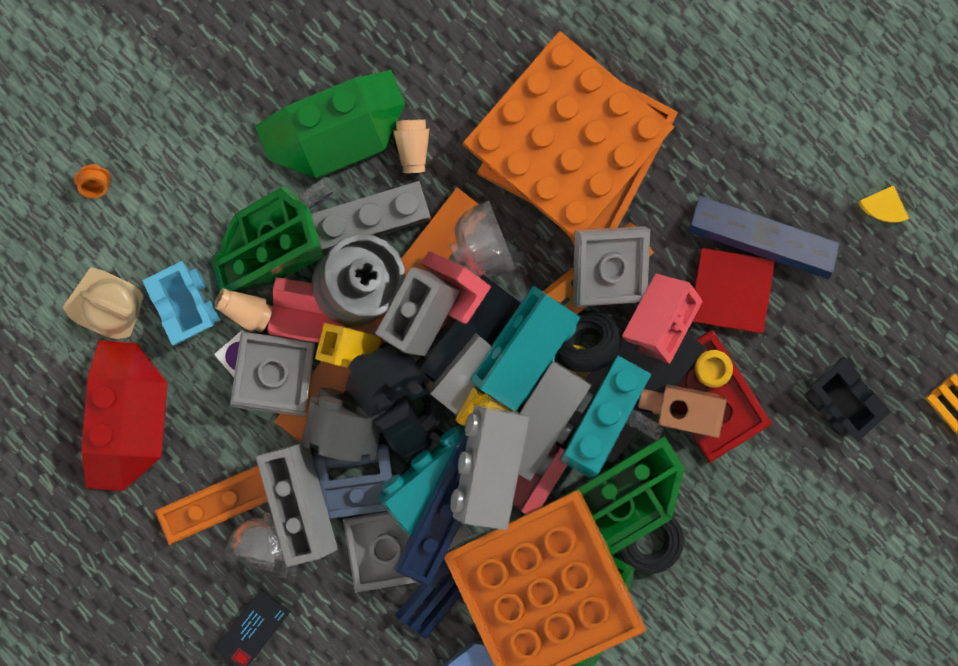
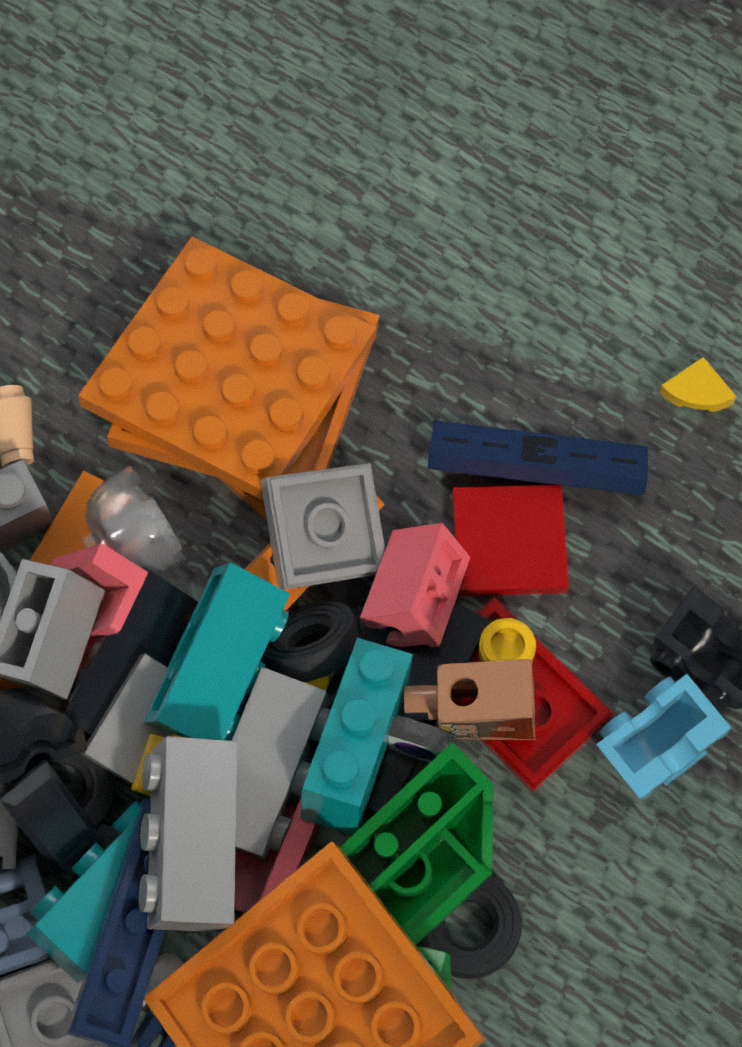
camera: 10 degrees left, 20 degrees down
(799, 448) = (663, 737): none -> medium azure cylinder

